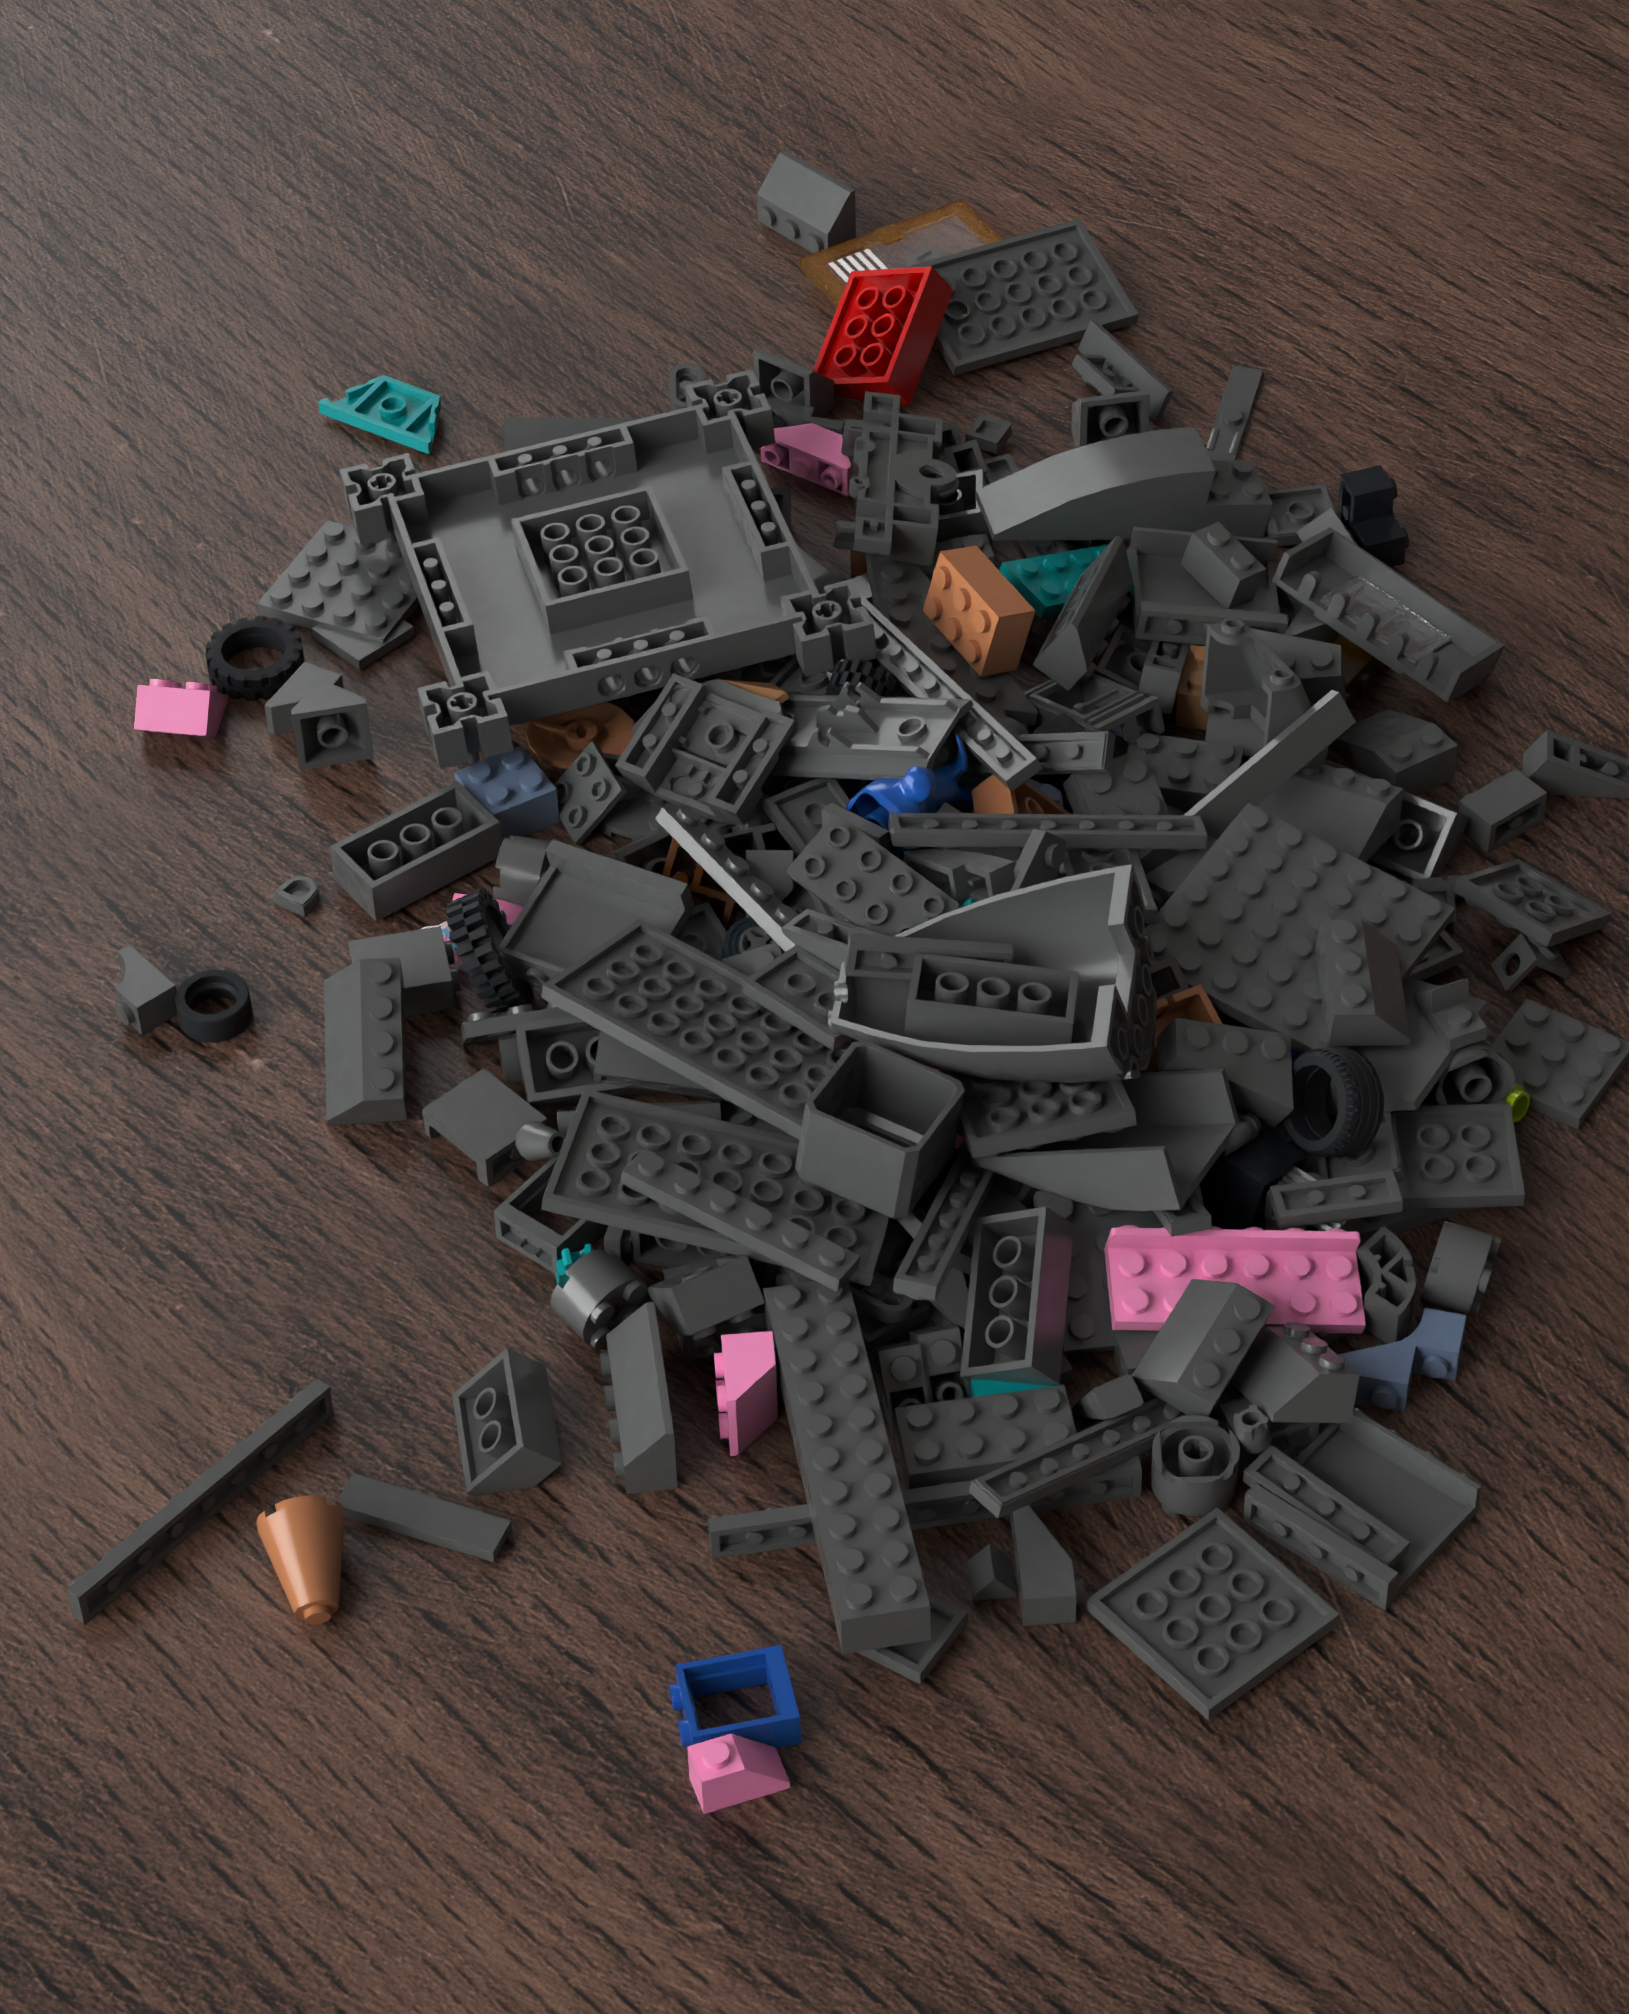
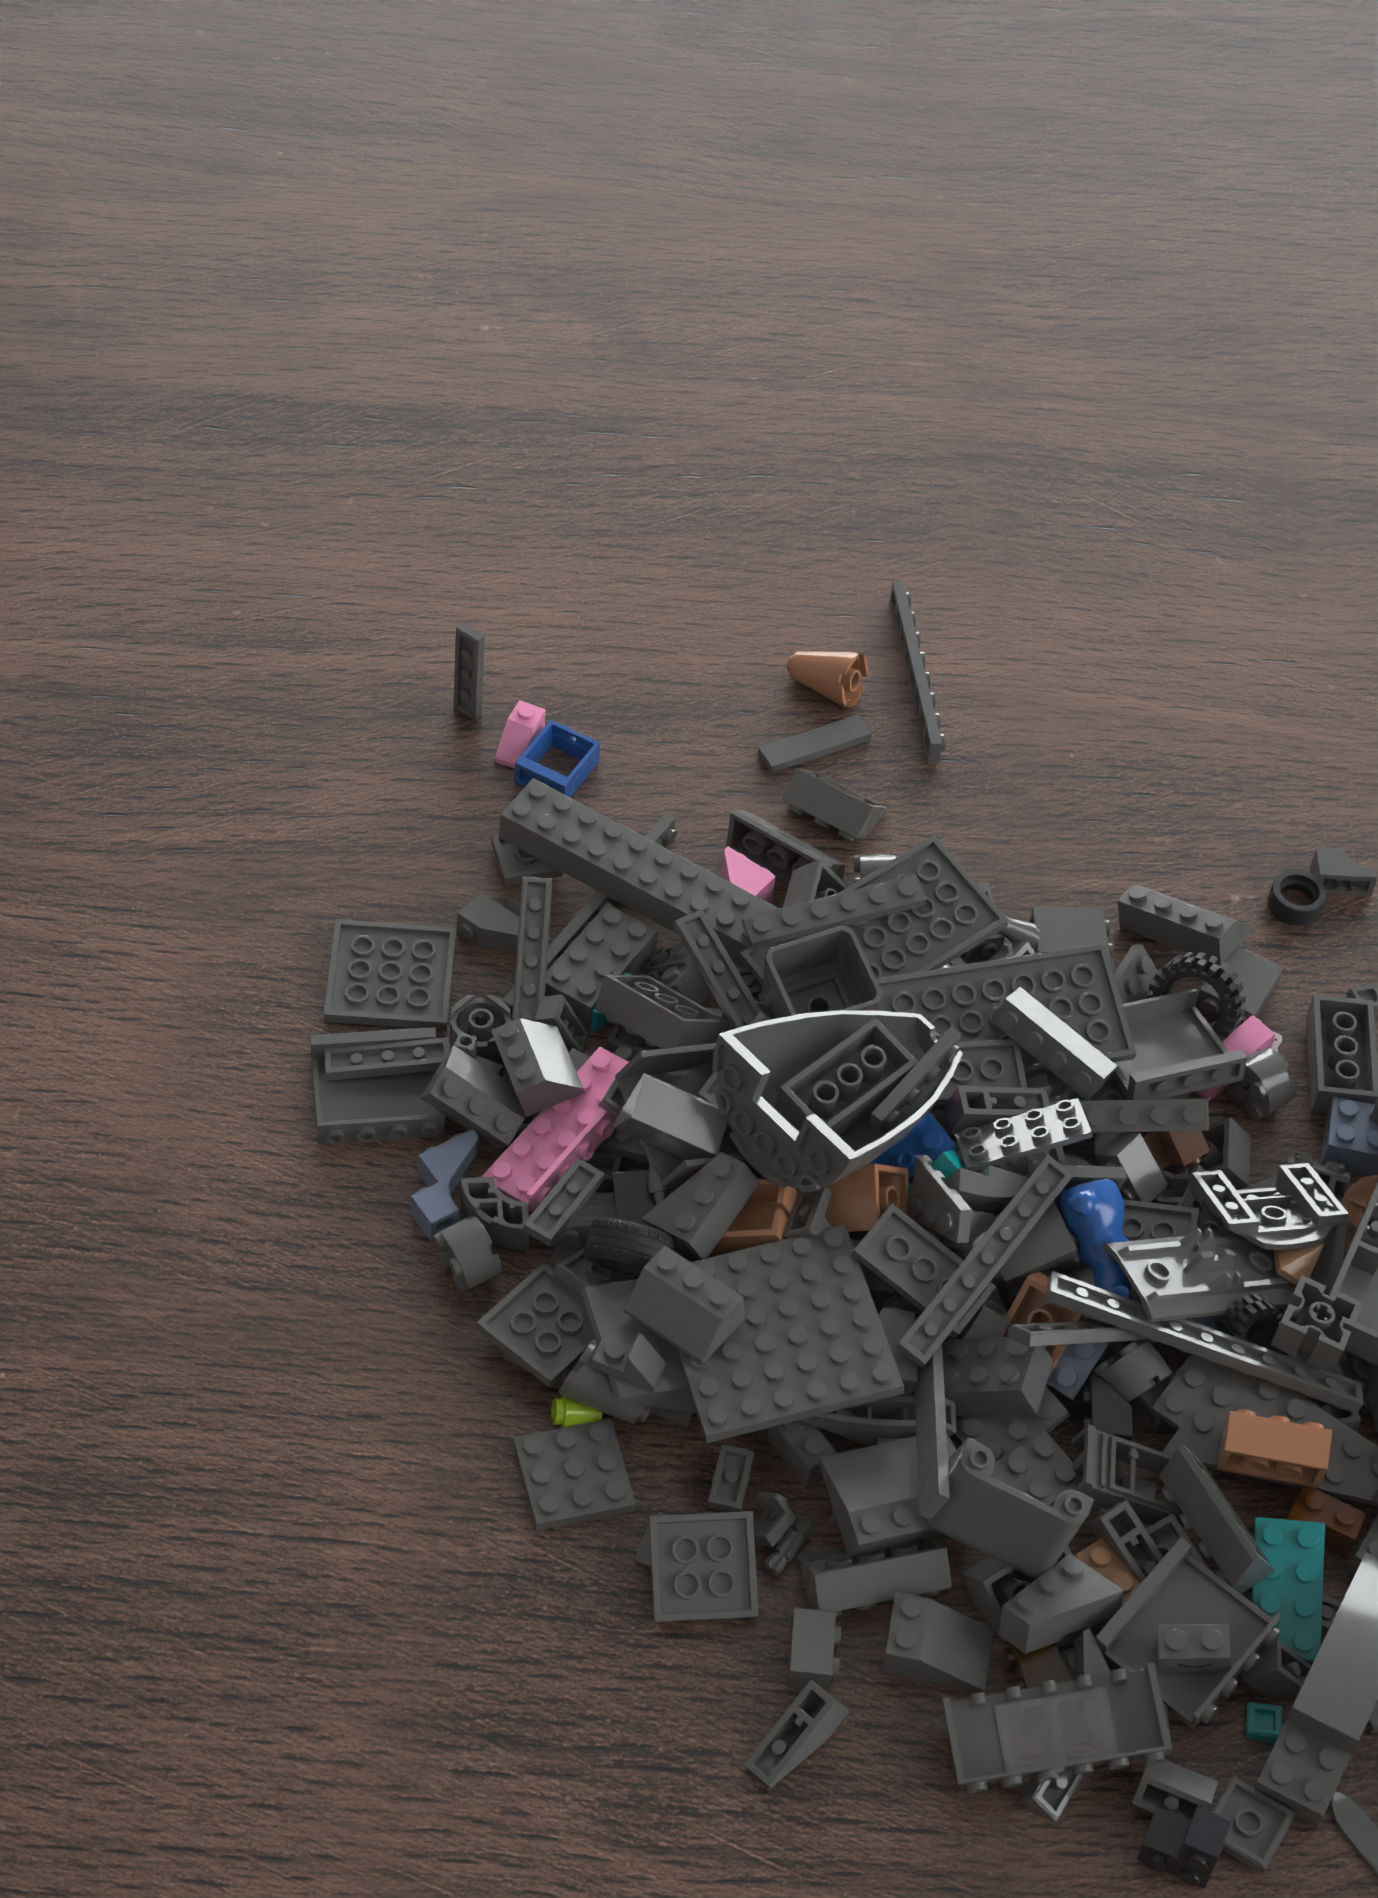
camera: 125 degrees right, 5 degrees up
(722, 949) = (1053, 1043): none -> dark grey brick
(739, 1823) = (468, 671): none -> dark grey tile
(1194, 1112) = (672, 1120): none -> dark grey slope

